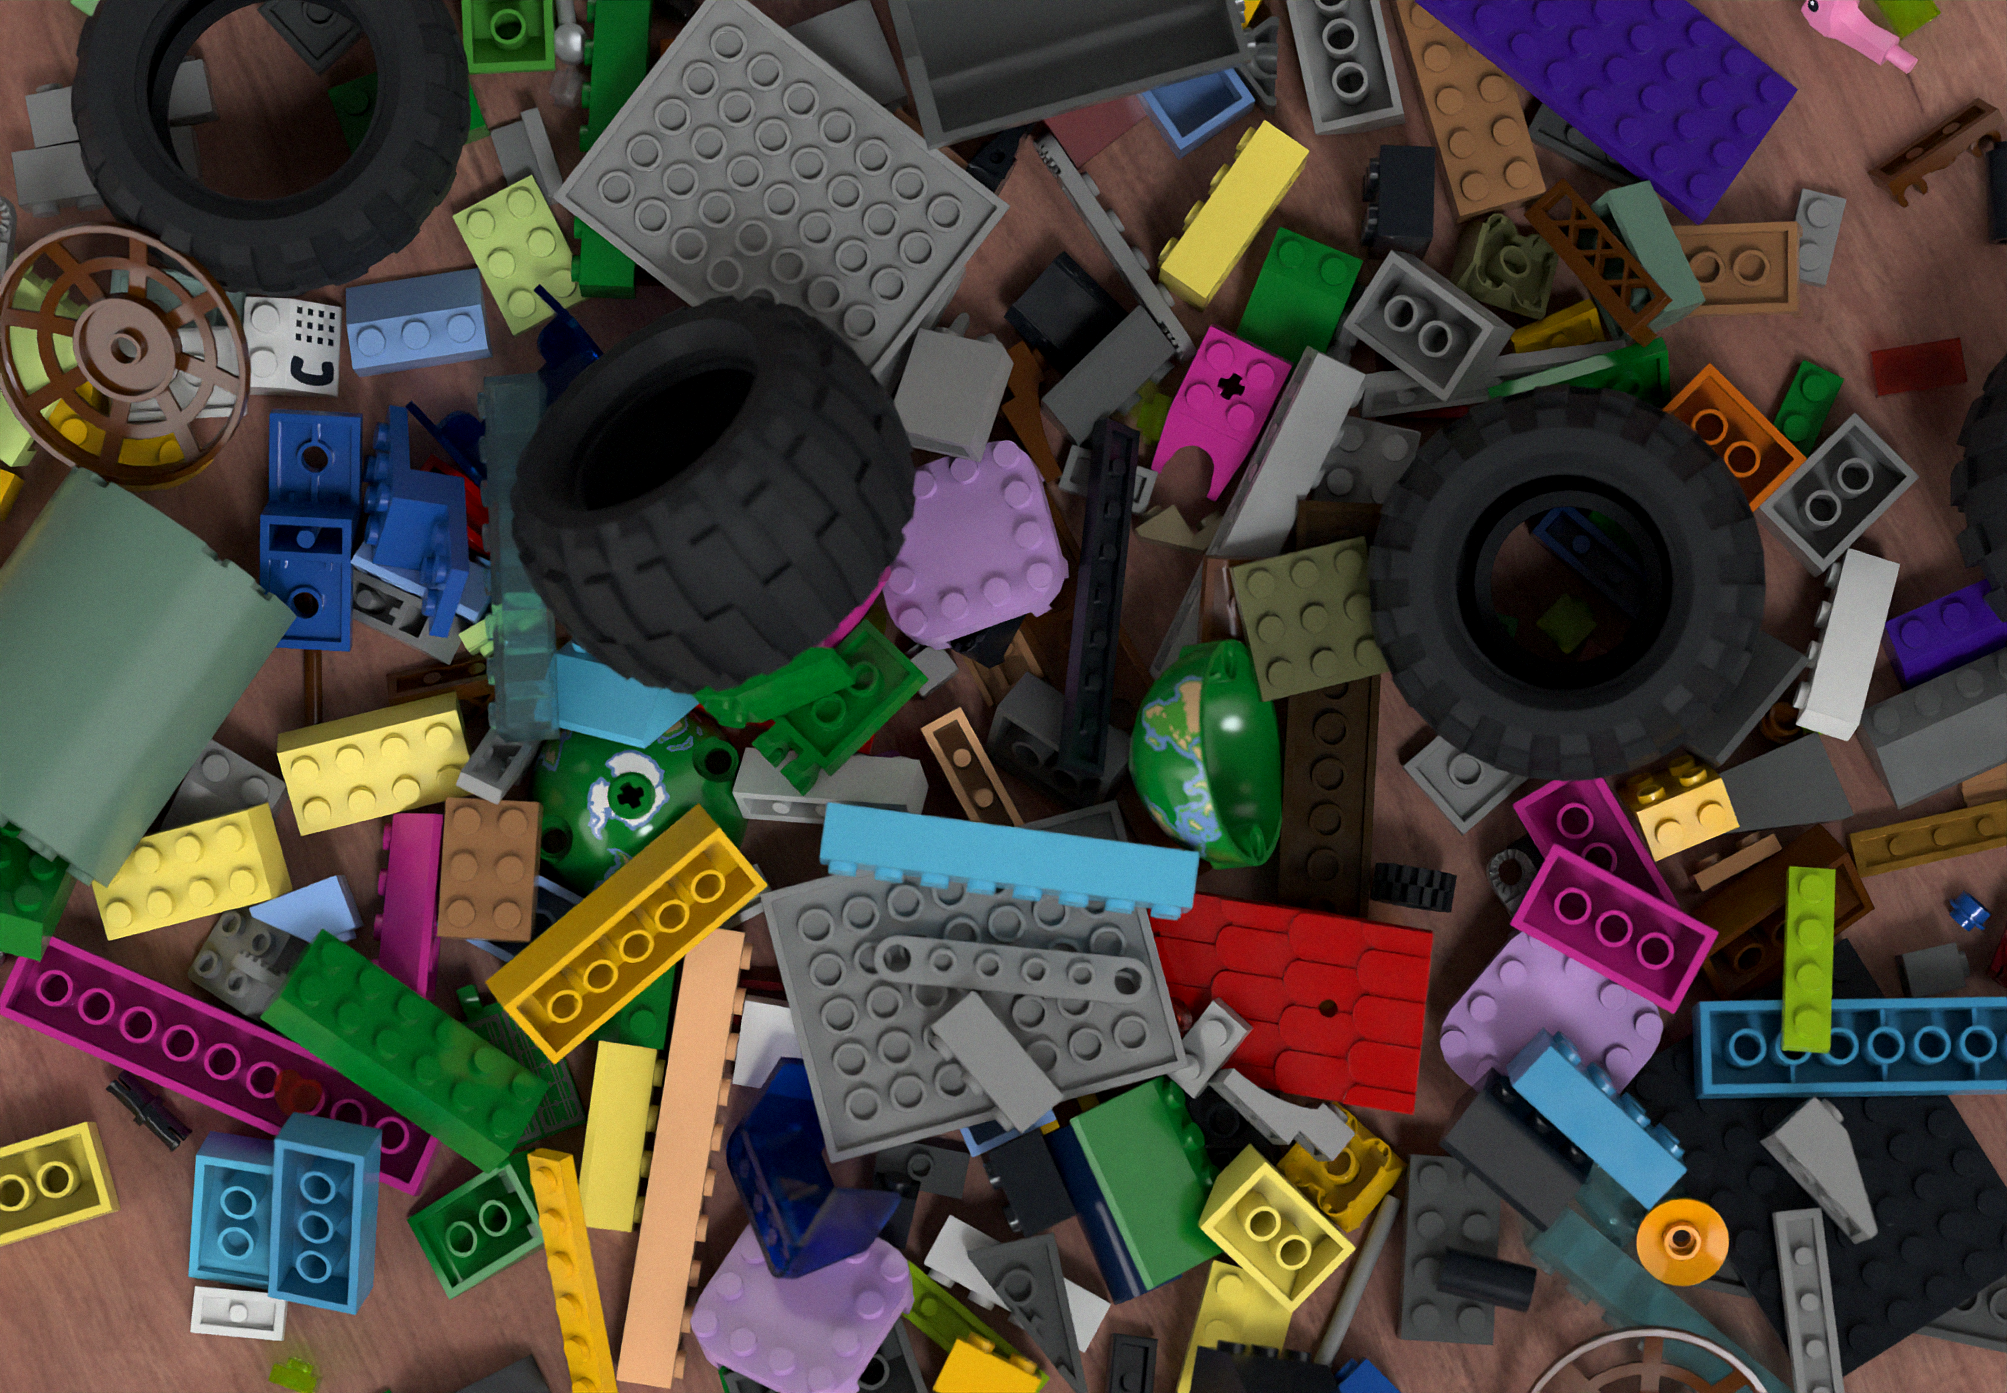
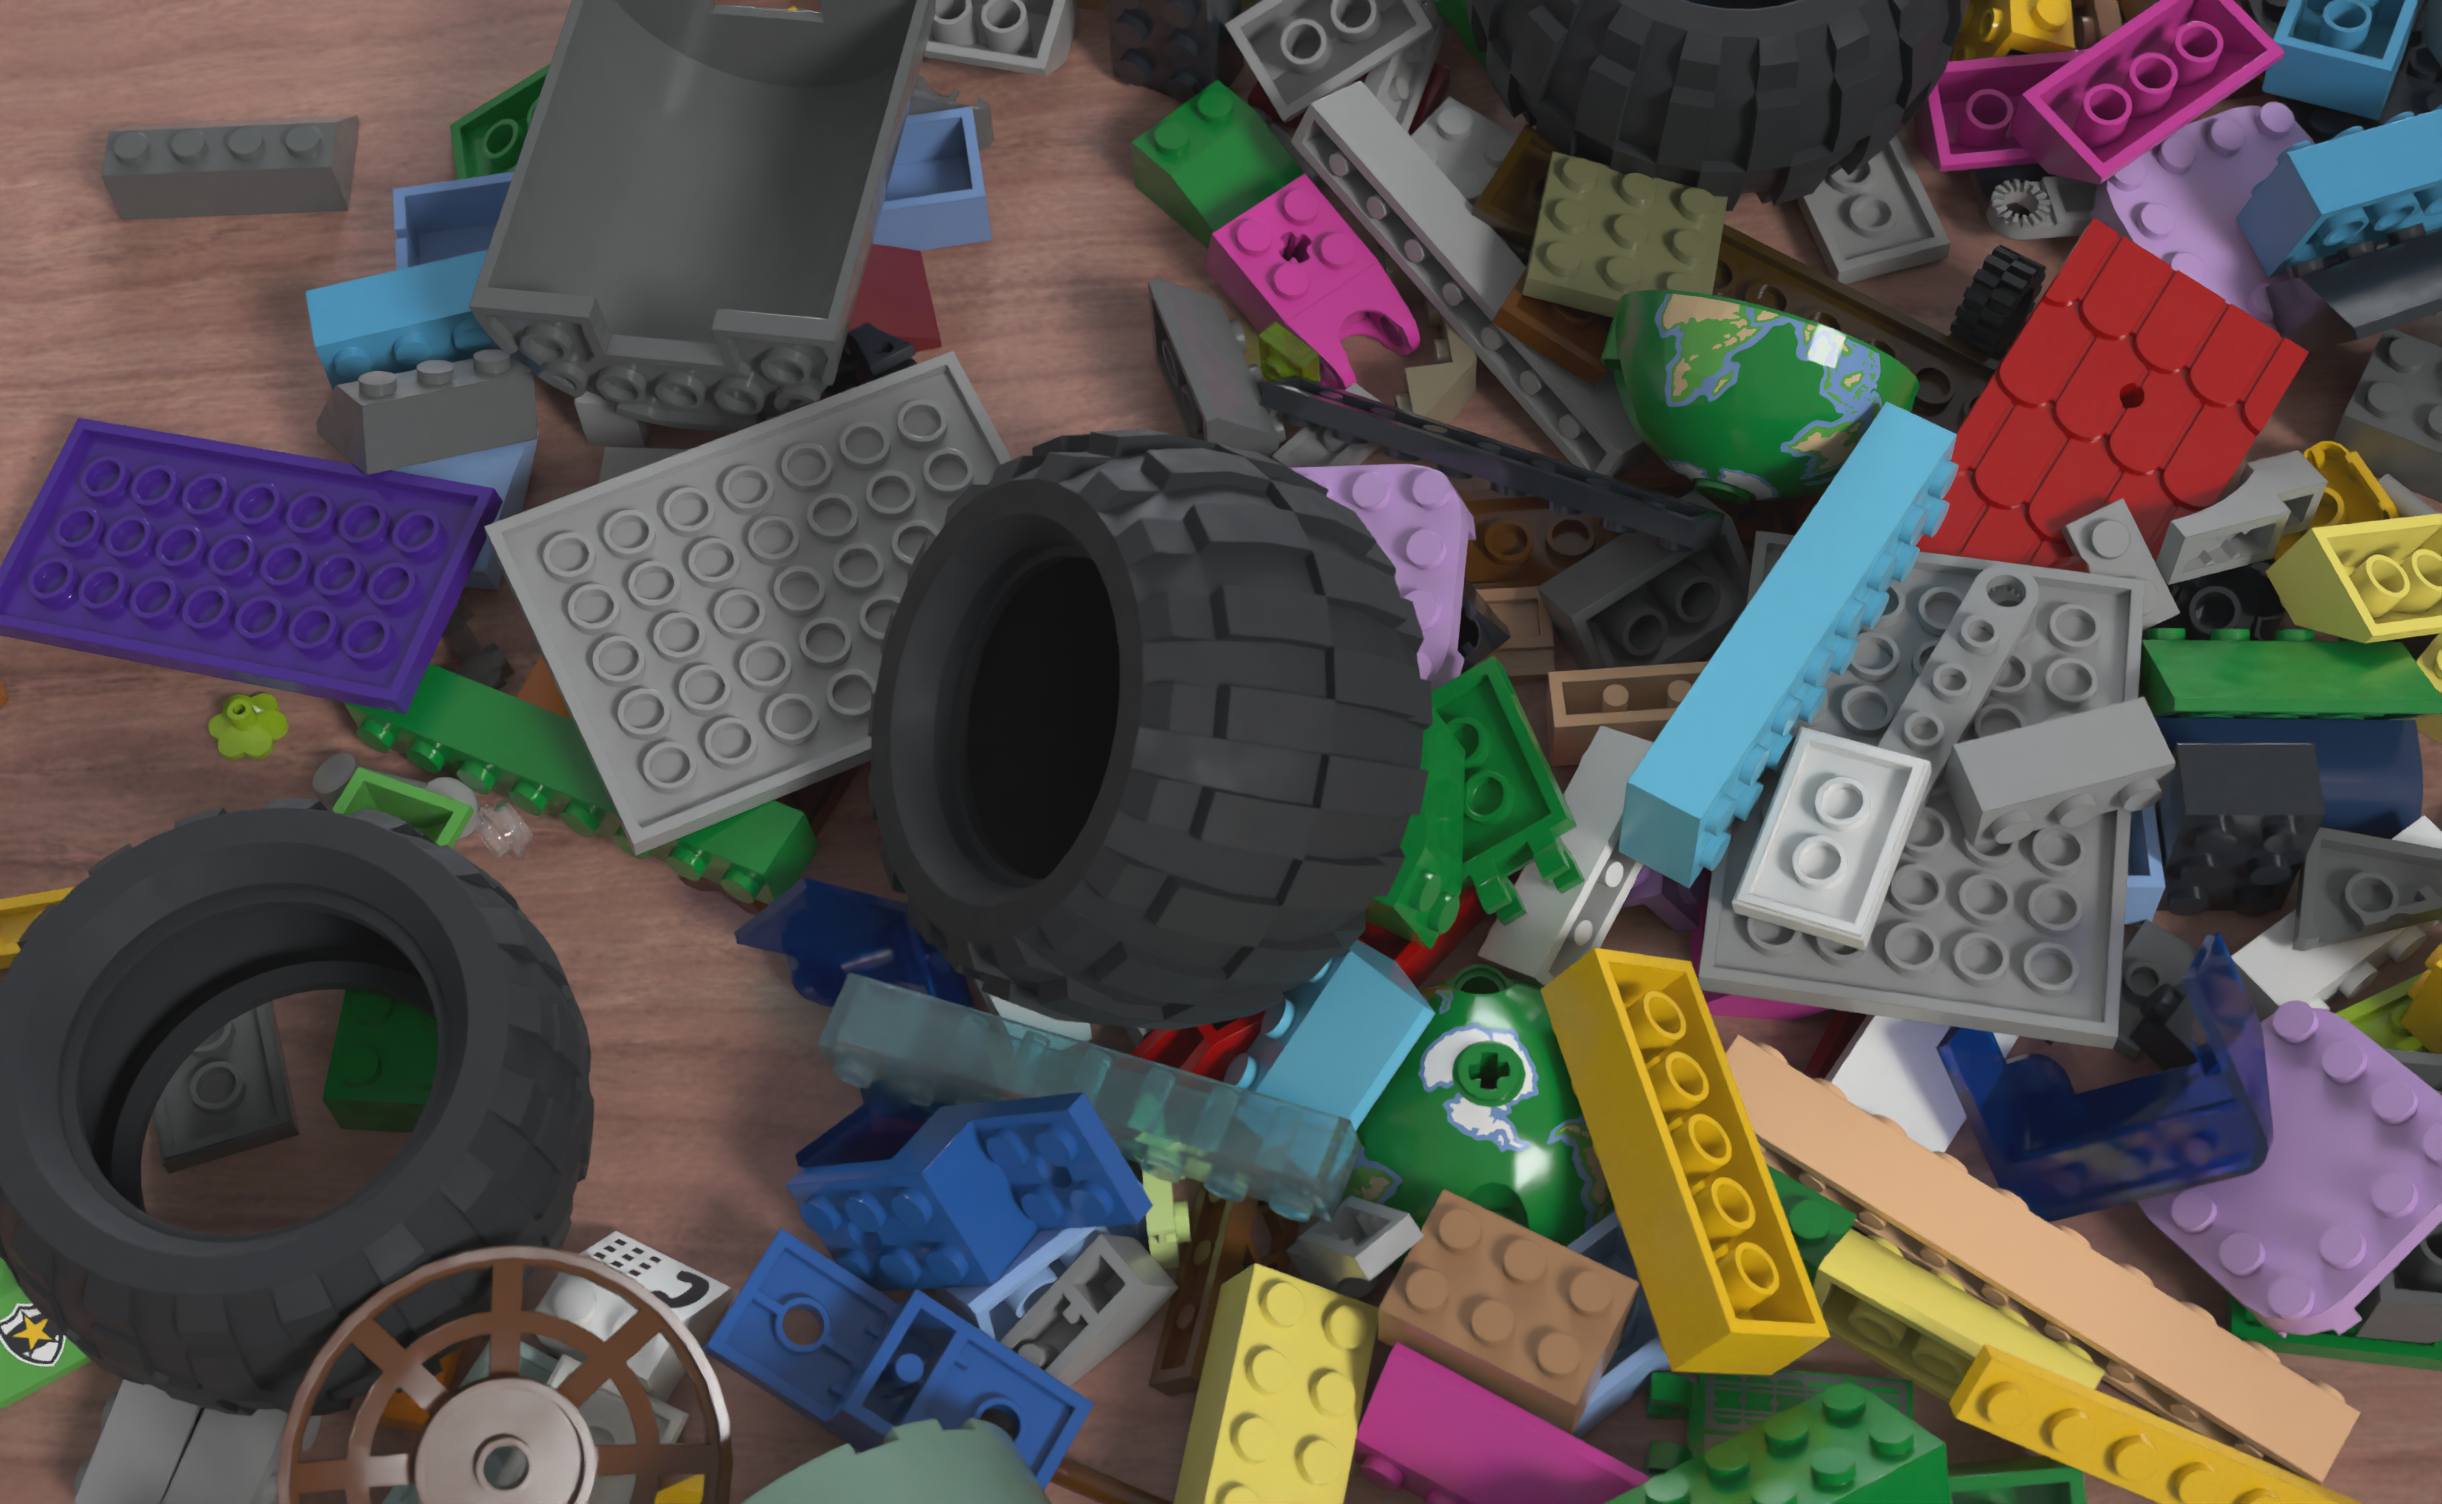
camera: 60 degrees left, 25 degrees down
(417, 322) = (697, 1136): light blue slope -> none
(518, 249) = (678, 977): yellowish green plate -> none
(527, 151) = (580, 909): light grey panel -> none
(883, 939) = (1832, 837): none -> white tile
(1065, 314) = (1108, 398): black slope -> none
(1106, 230) = (1045, 328): light grey plate -> none
(1232, 216) = (1091, 186): light yellow brick -> none

